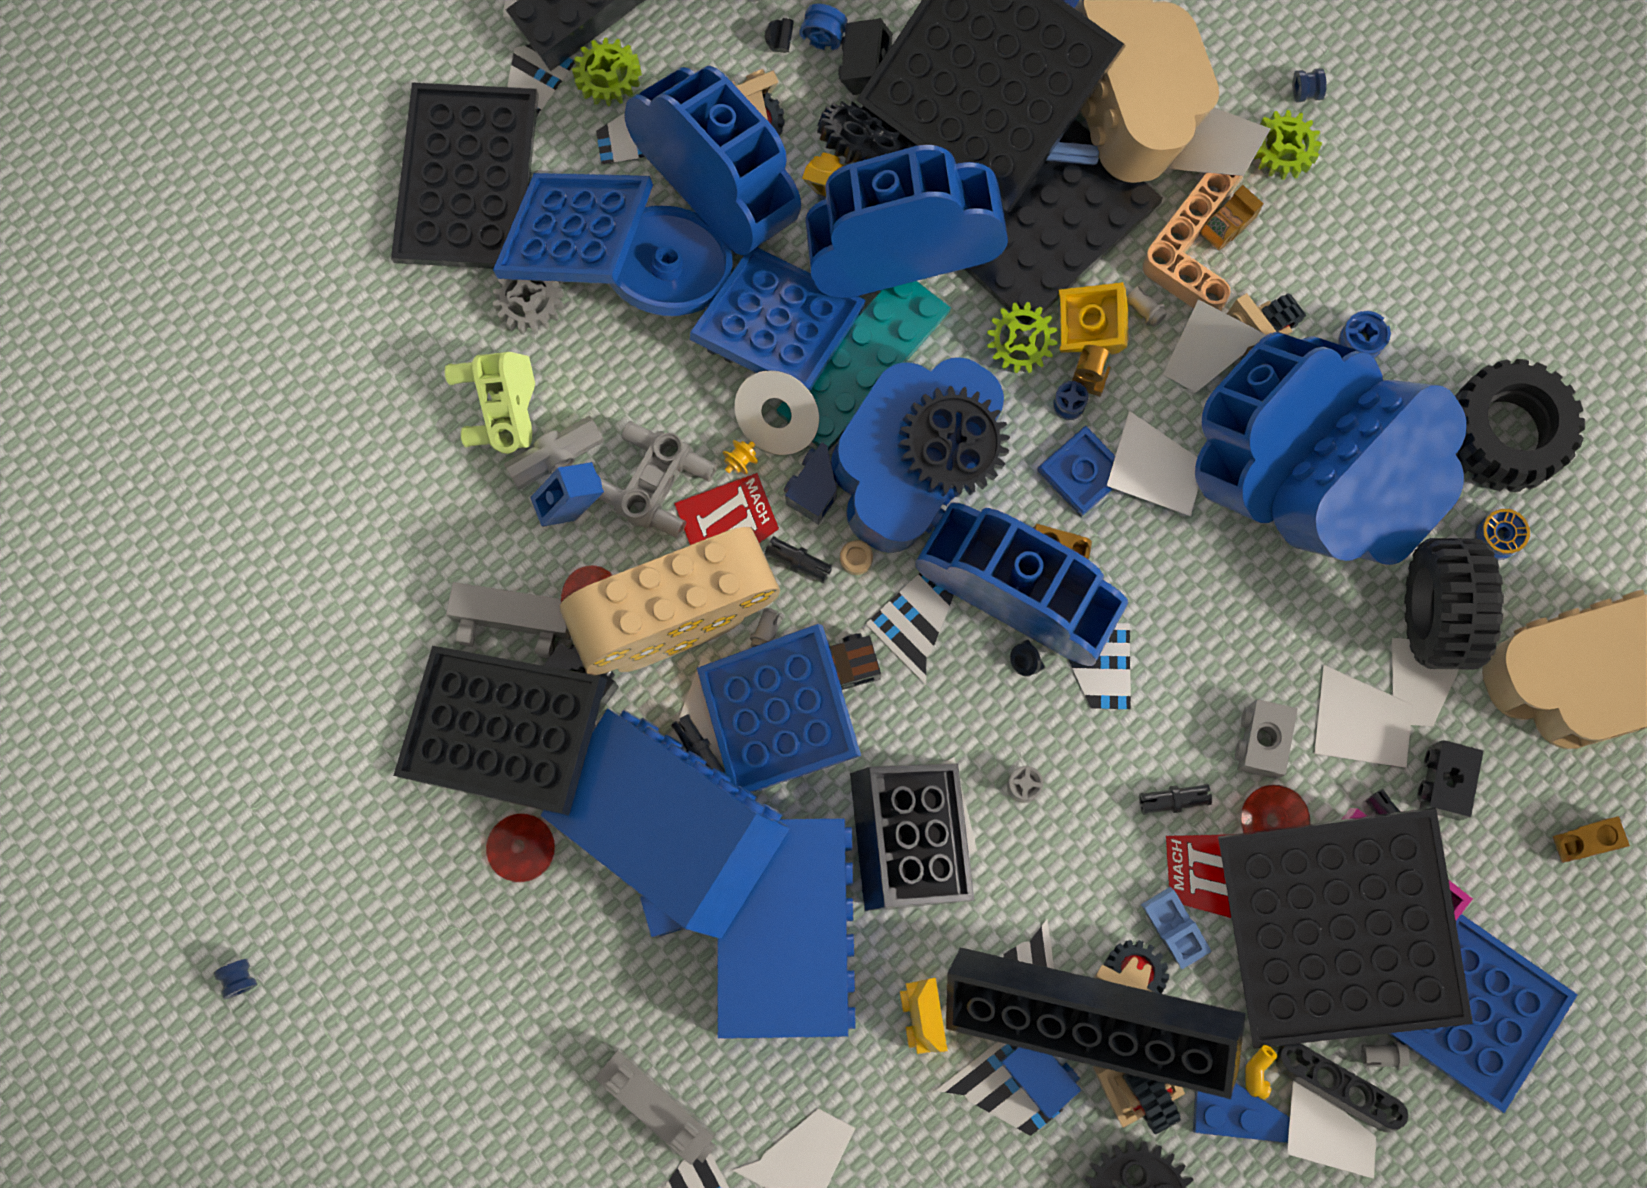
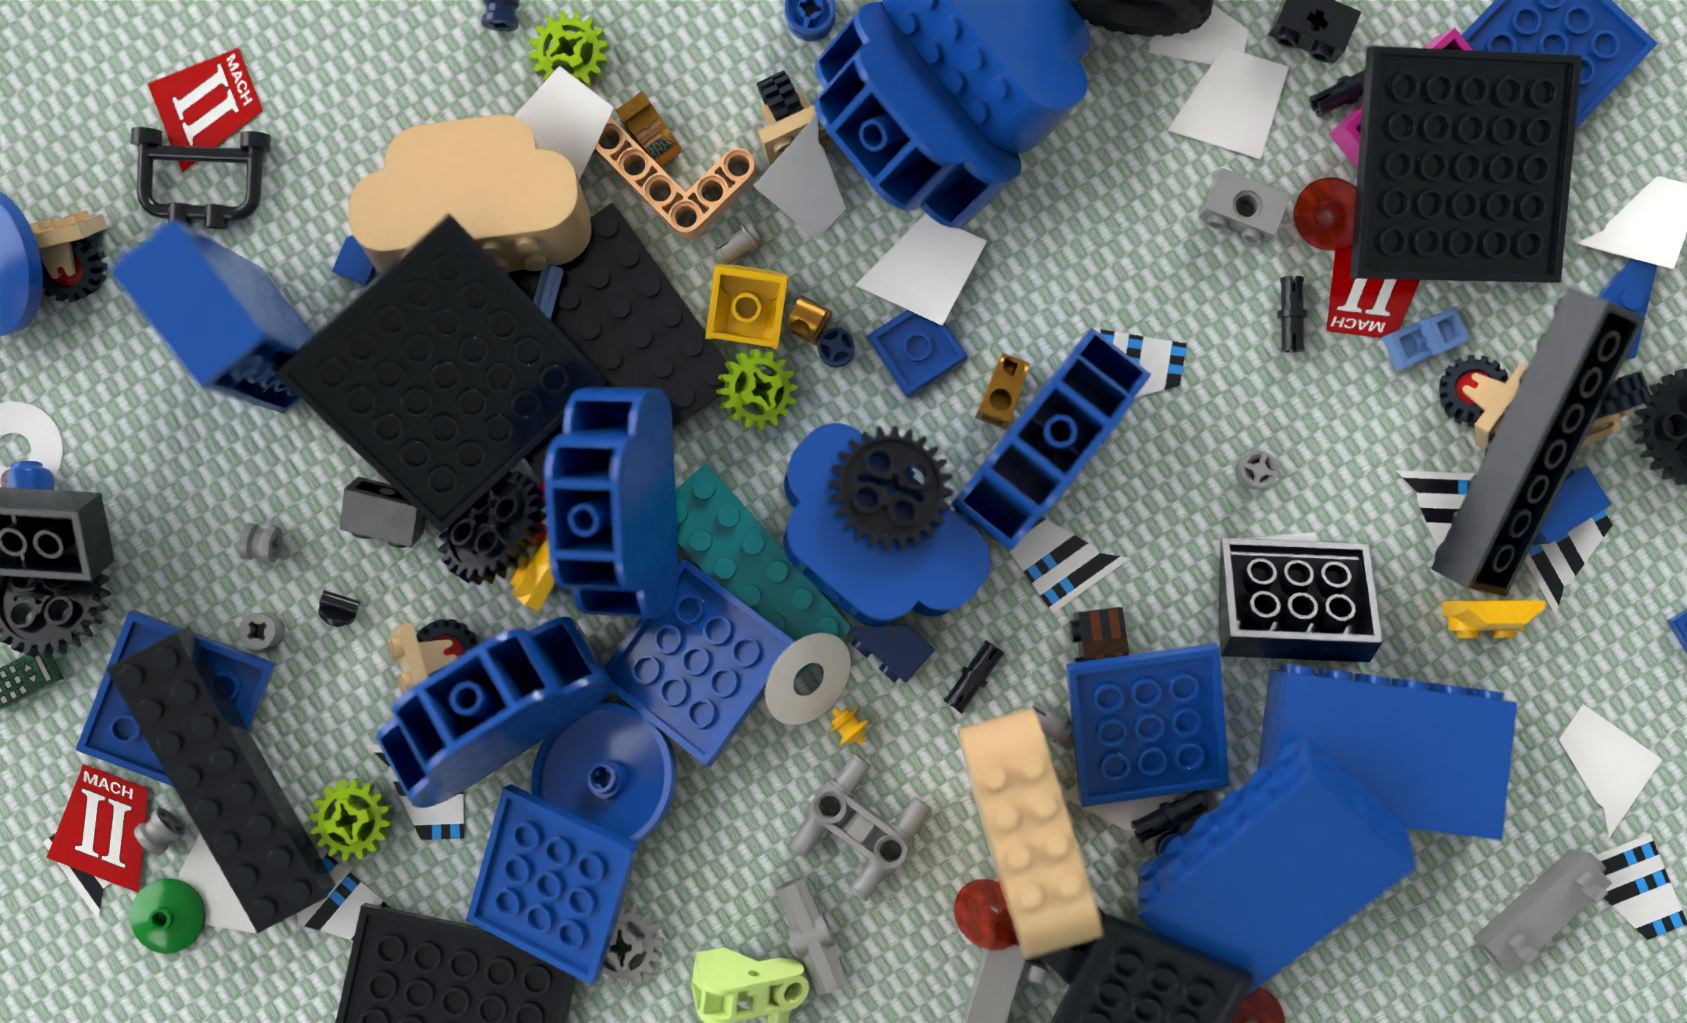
camera: 80 degrees left, 10 degrees up
(567, 494) = (870, 928): blue brick -> none
(727, 508) = (915, 749): red sticker -> none
(823, 26) = (337, 556): blue wheel -> none
(856, 557) = (979, 612): tan tile -> none
(1026, 659) = (1120, 445): black plate -> none
(1255, 1072) = (1577, 280): yellow arm -> none
(1339, 1092) = (1609, 201): black beam -> none
(1385, 1055) = (1584, 150): light grey pin -> none

